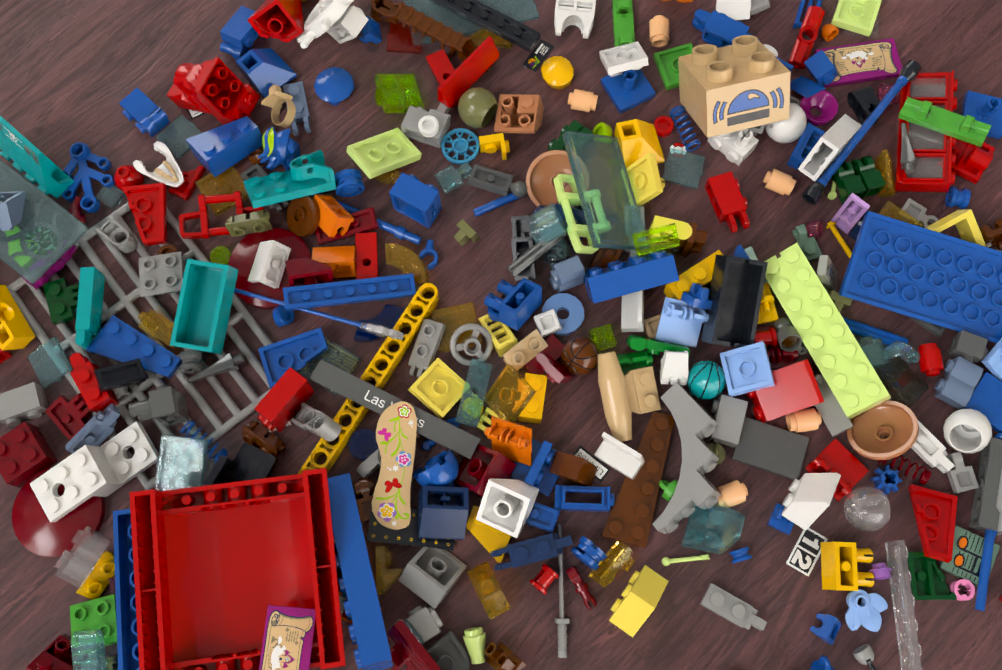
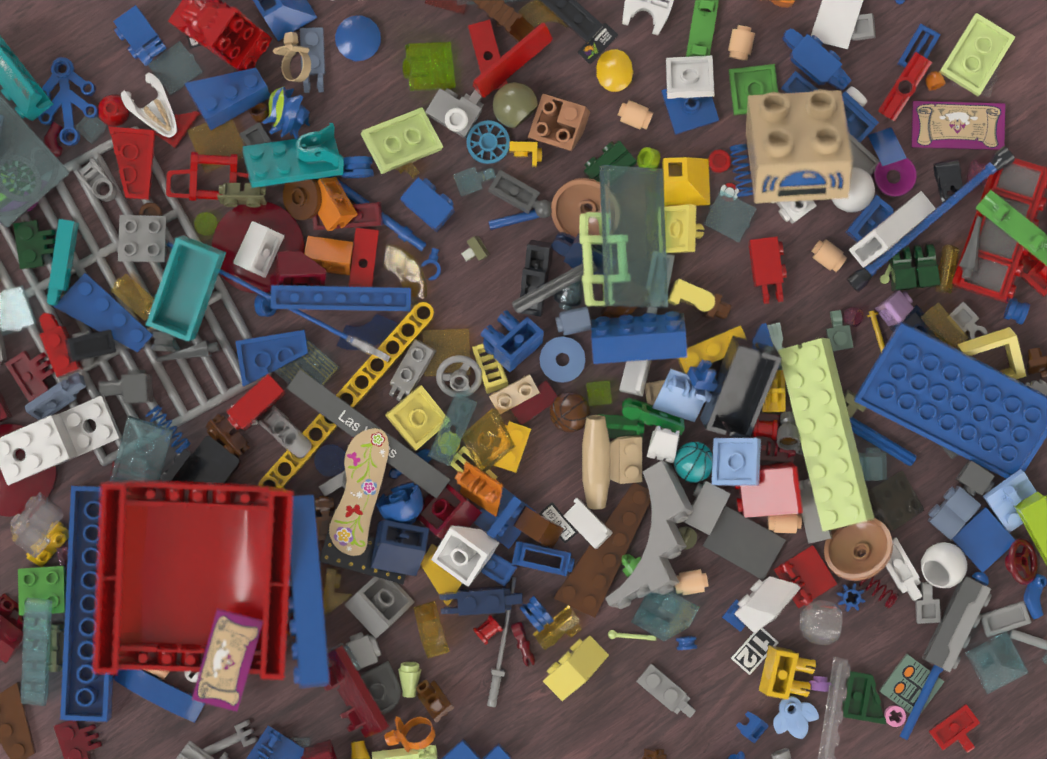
camera: 10 degrees right, 15 degrees up
(546, 224) = (562, 267): clear light blue brick -> none
(547, 323) = (543, 368): white tile -> none
(555, 370) = (540, 422): dark red hinge -> none
(657, 239) = (673, 311): clear neon green tile -> none
(821, 68) = (909, 131): blue brick -> none
(827, 273) = (849, 372): light grey tile -> none
(902, 350) = (902, 468): clear light blue arm -> none
(930, 359) = (932, 483): red brick -> none
(935, 521) = (886, 646): red wing -> none

